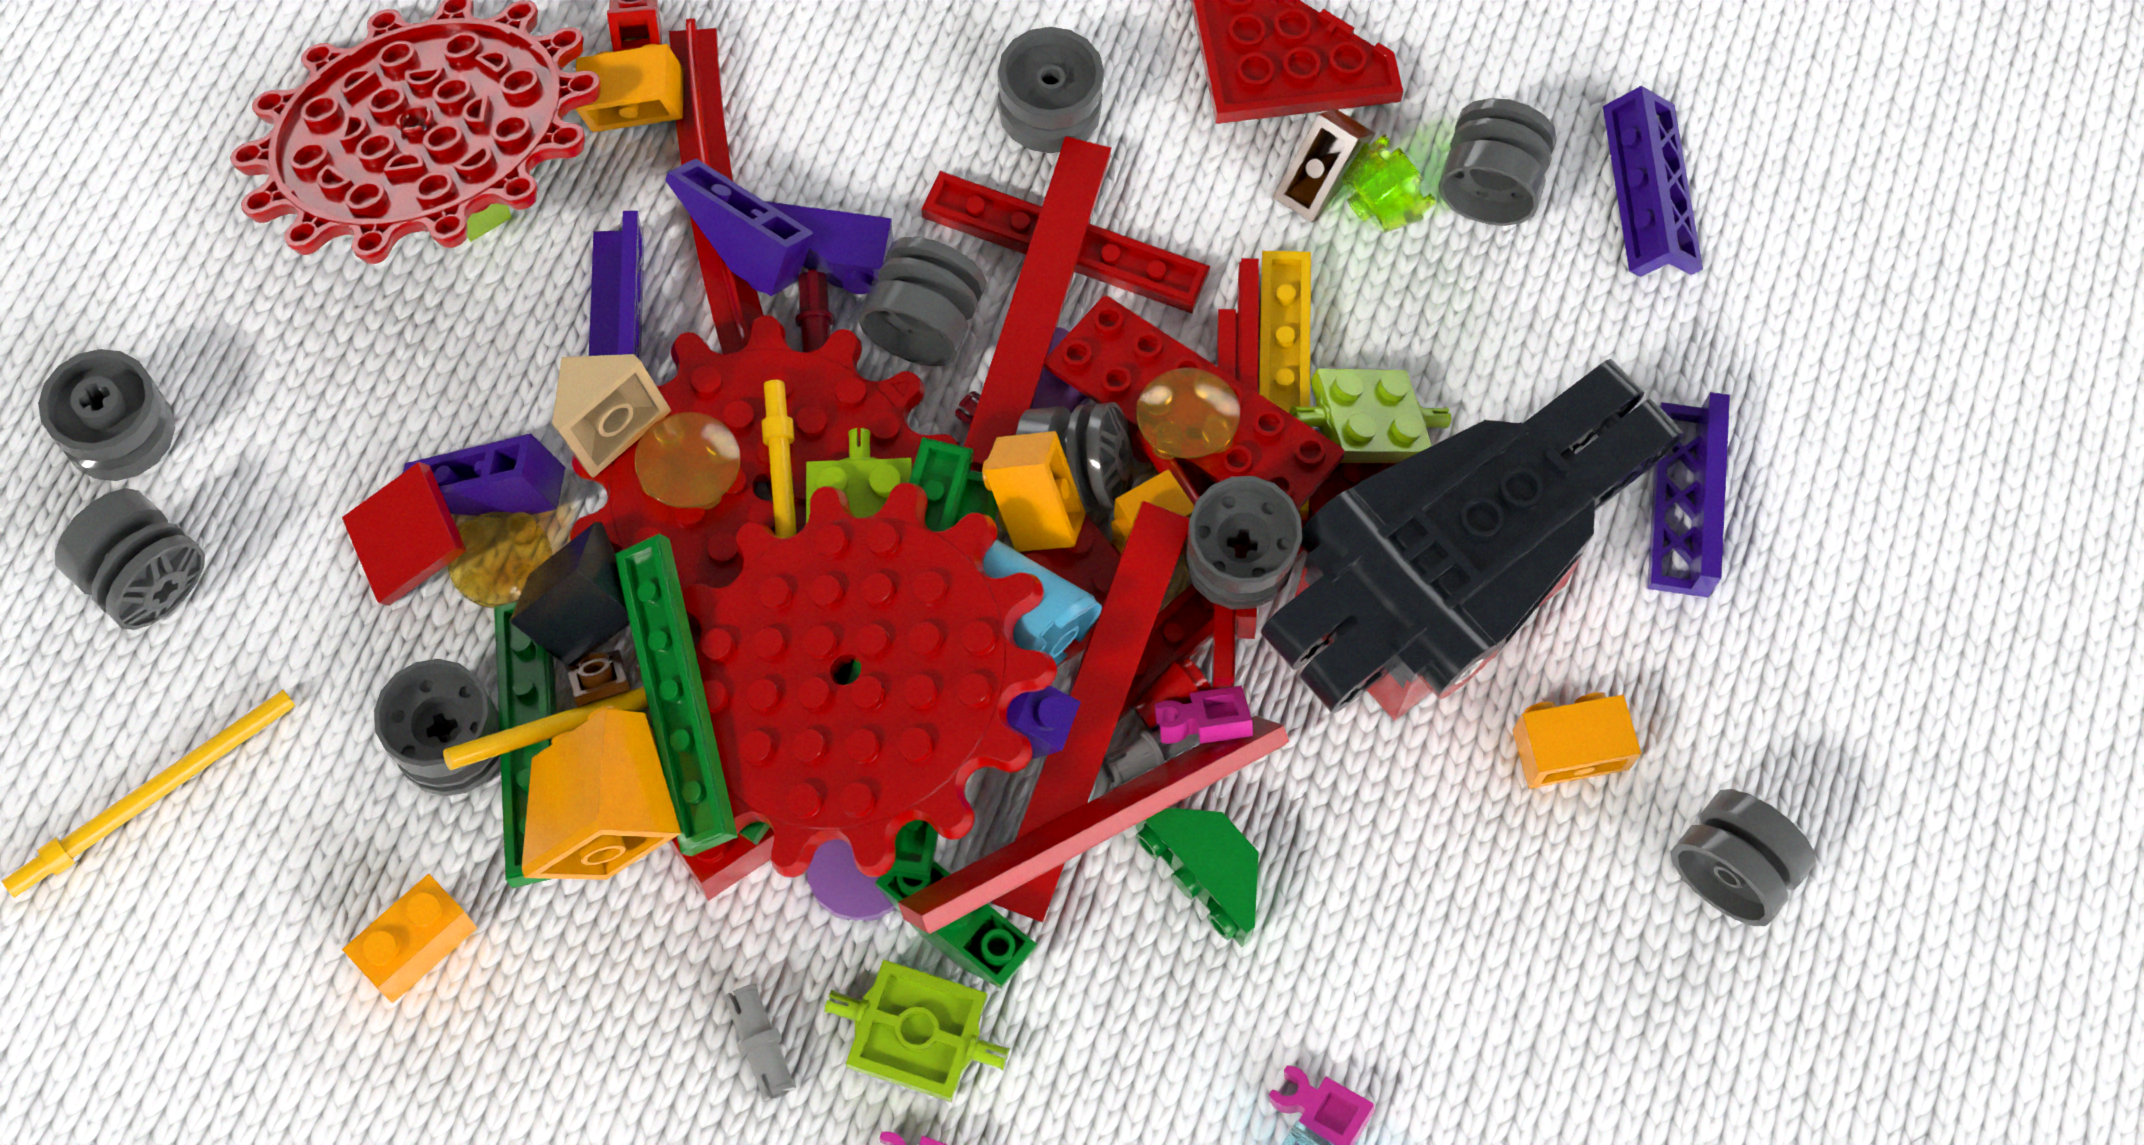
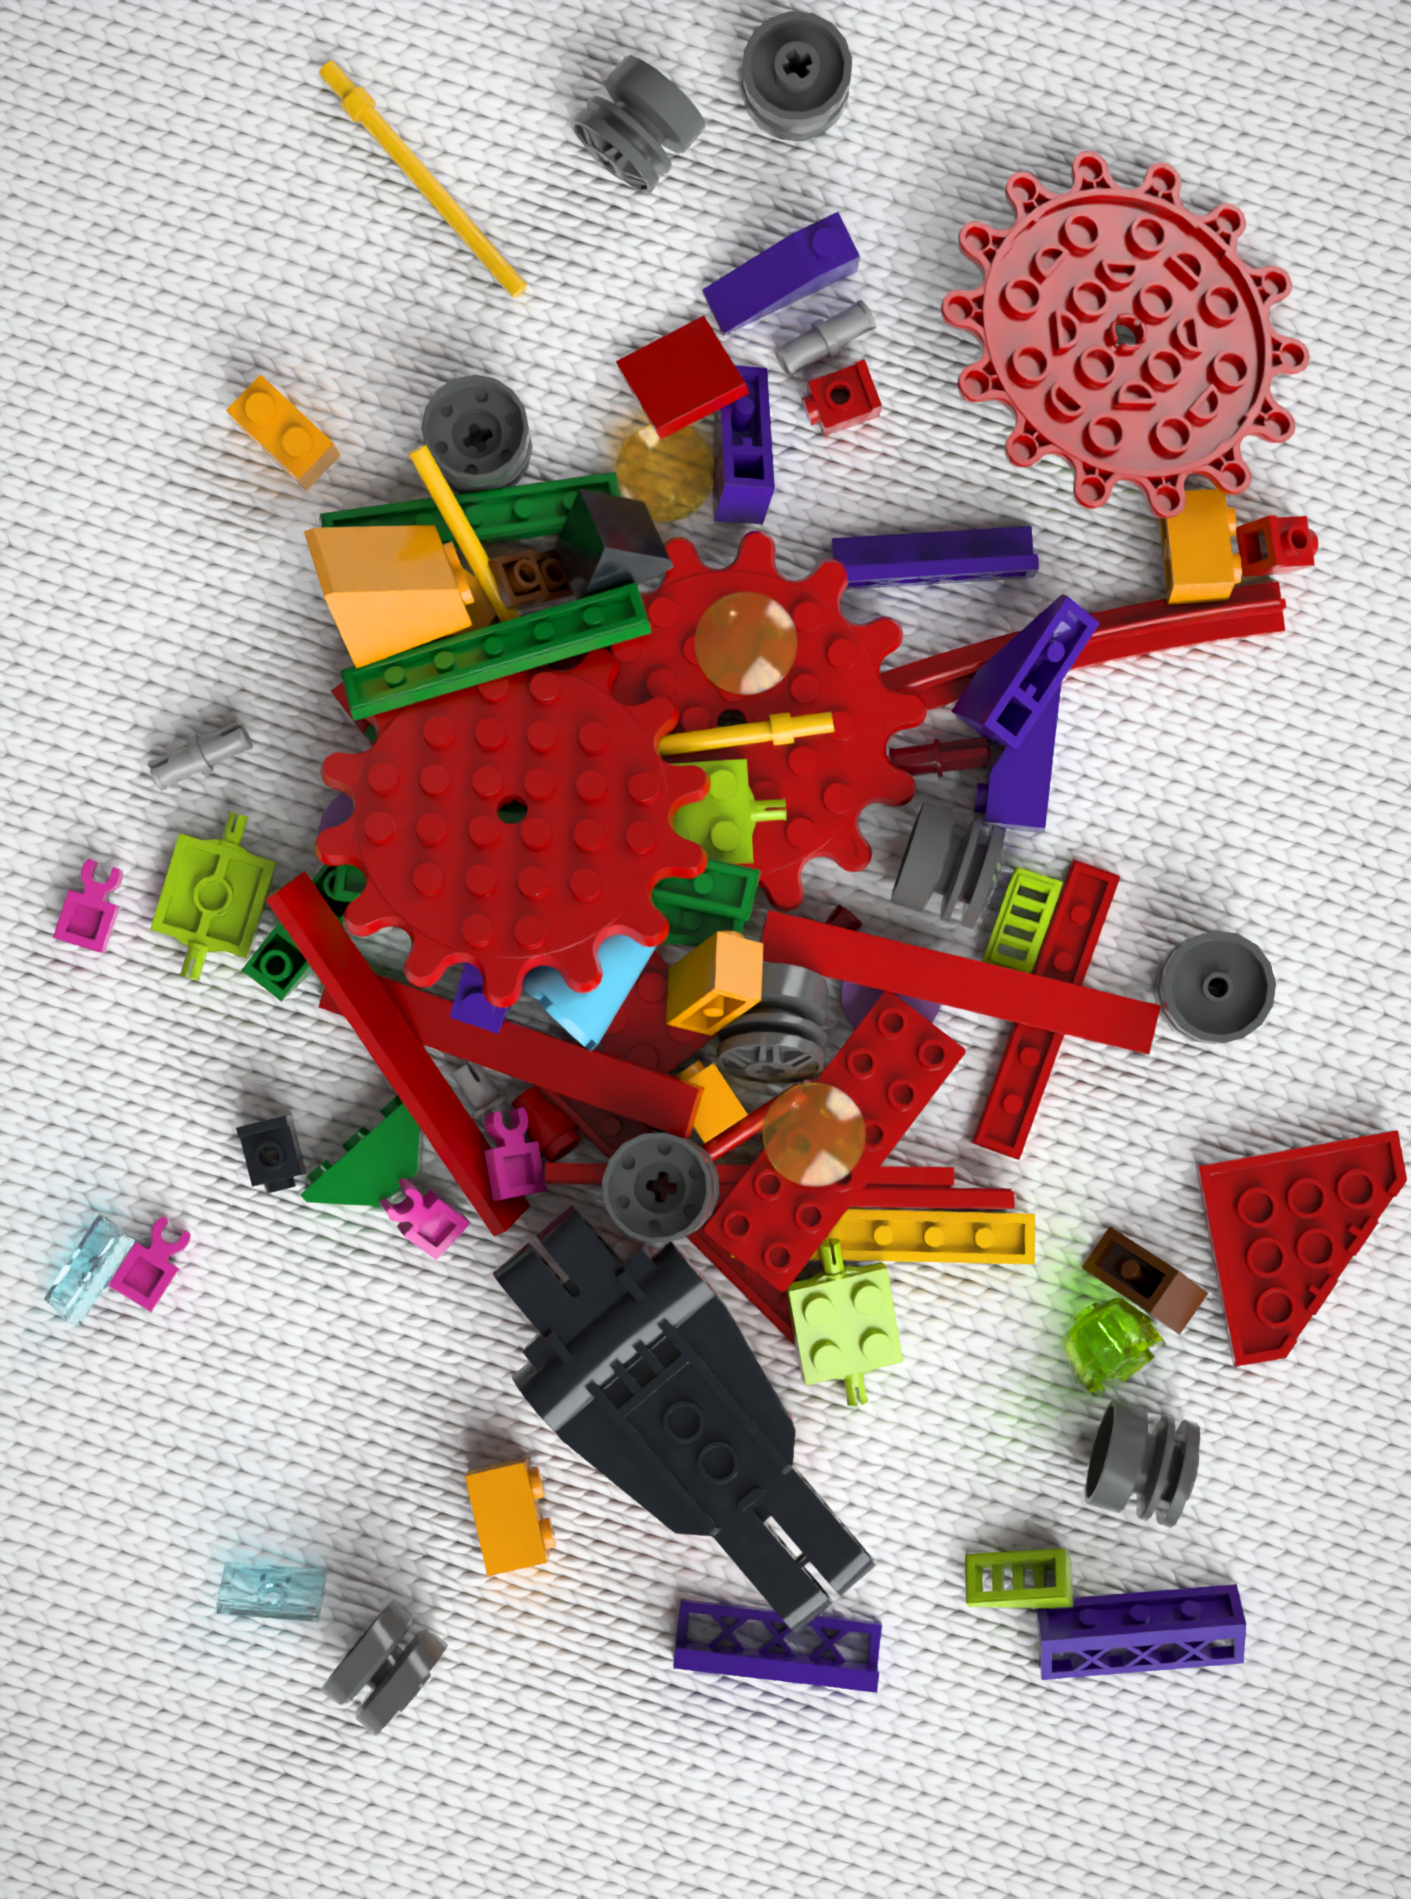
camera: 95 degrees right, 20 degrees up
(309, 438) = (783, 274): none -> dark purple slope
(382, 405) = (825, 338): none -> light grey pin
(445, 388) = (833, 417): none -> red brick
(604, 406) = (780, 554): tan slope -> none
(969, 234) = (1033, 881): none -> lime slope
(1188, 989) = (282, 1135): none -> black brick
(1270, 811) = (426, 1221): none -> dark pink plate
(1602, 243) = (1038, 1597): none -> lime slope
(1669, 985) = (271, 1591): none -> clear light blue plate

